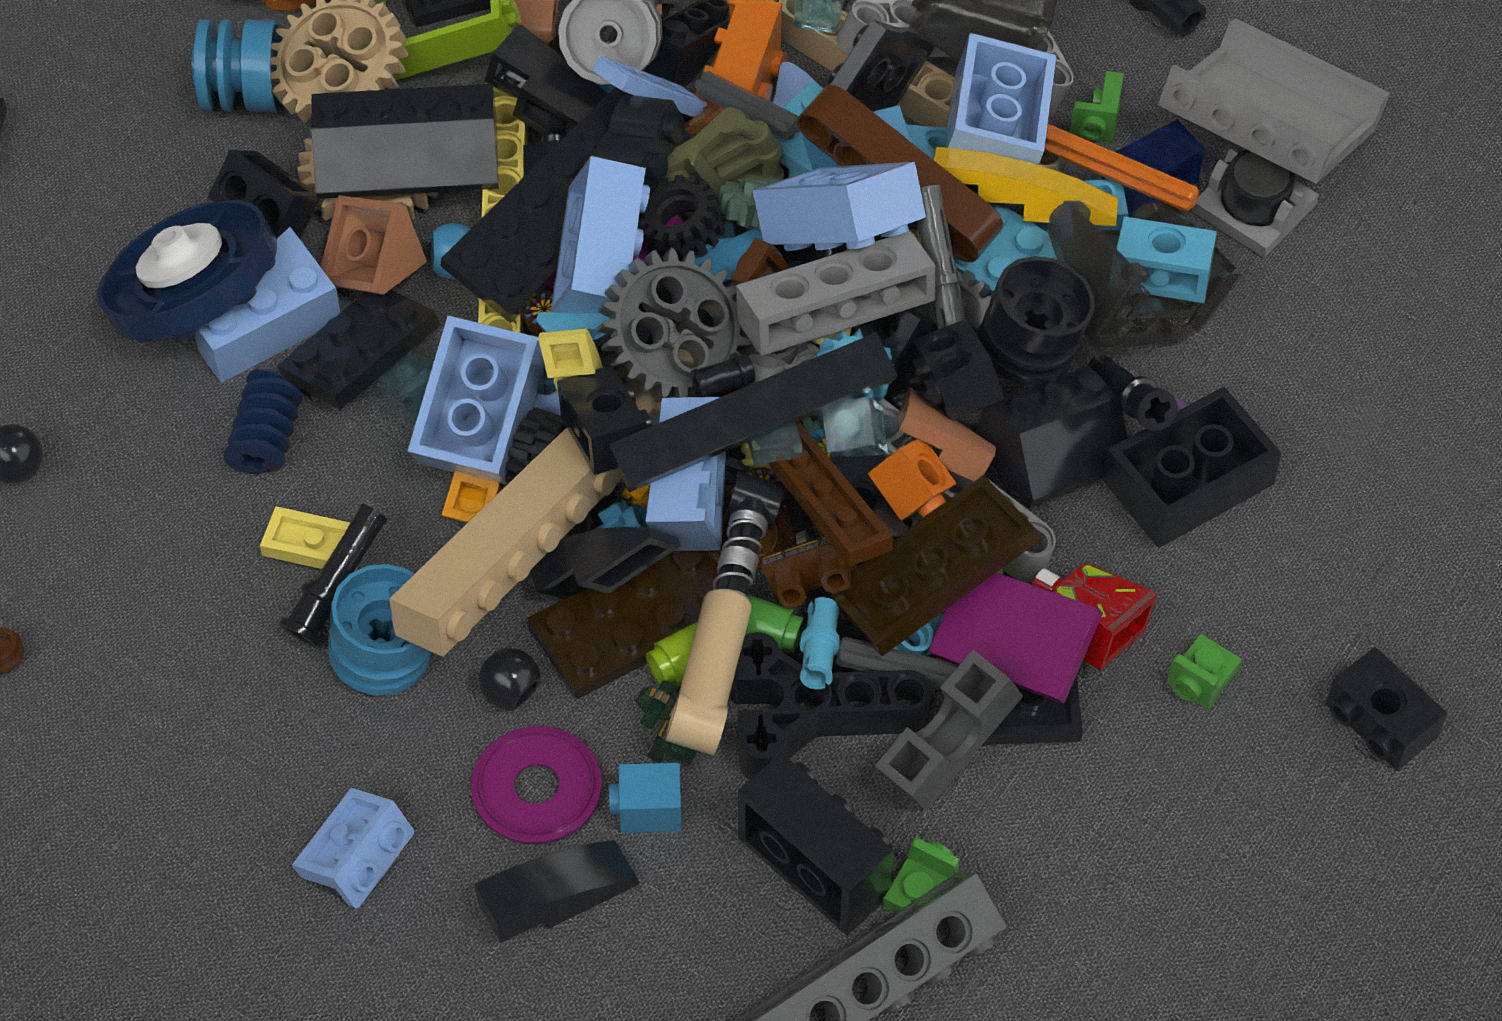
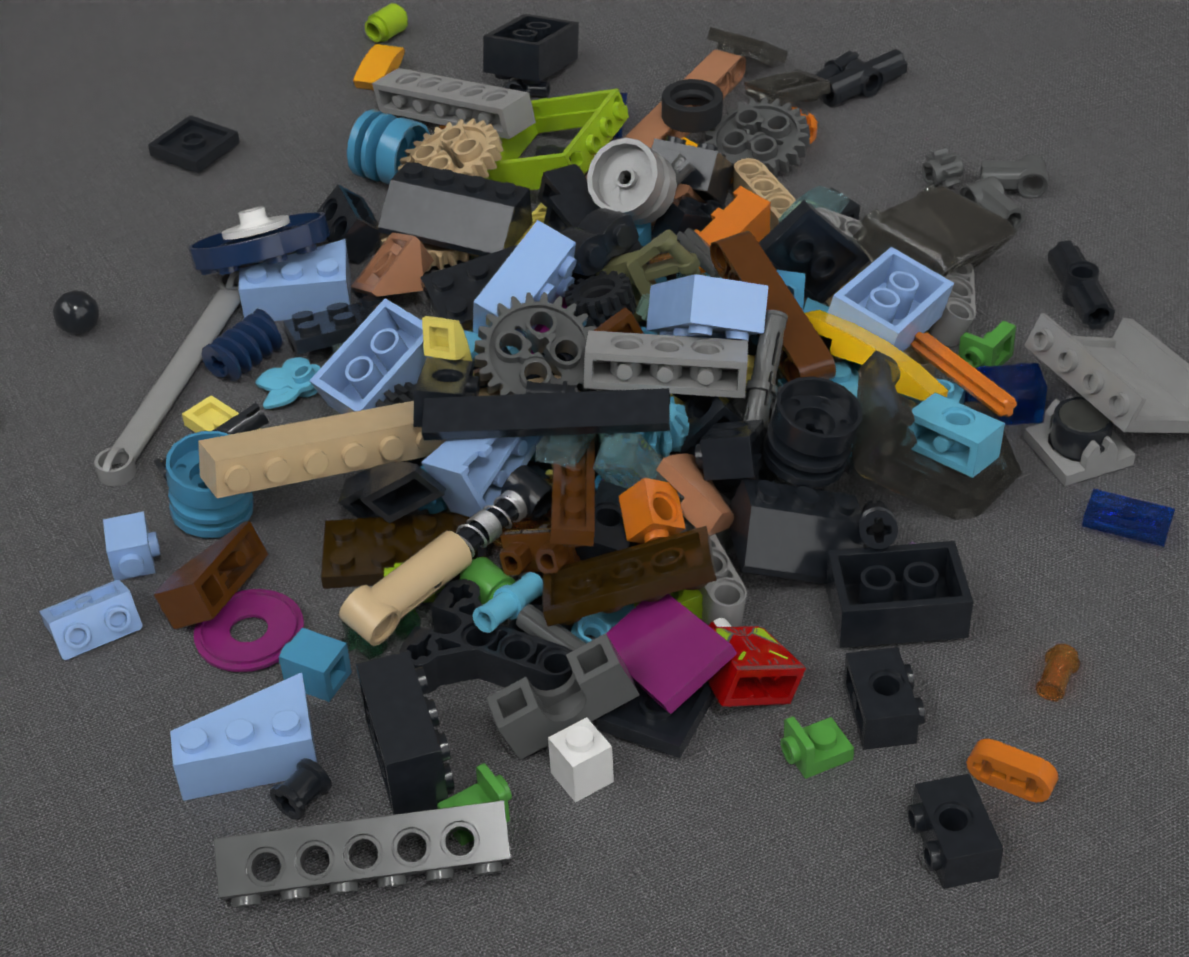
camera: 30 degrees right, 15 degrees down
(201, 503) = (168, 386): none -> light grey piece
(334, 742) = (130, 546): none -> light blue brick
(342, 449) = (288, 382): none -> medium azure plate
(462, 747) = (211, 578): none -> reddish brown slope
(509, 678) = (277, 550): black piece -> none
(553, 887) = (185, 690): black slope -> none
(648, 85) = (617, 202): light blue tile -> none
(651, 917) = (245, 742): none -> light blue wedge
(736, 943) = (300, 788): none -> black bush
(997, 788) = (581, 759): none -> white brick
(1241, 616) = (882, 698): none -> black brick
(1352, 277) = (1128, 517): none -> clear blue plate
(1379, 480) = (1060, 665): none -> clear orange pin
(1399, 620) = (1012, 770): none -> orange beam

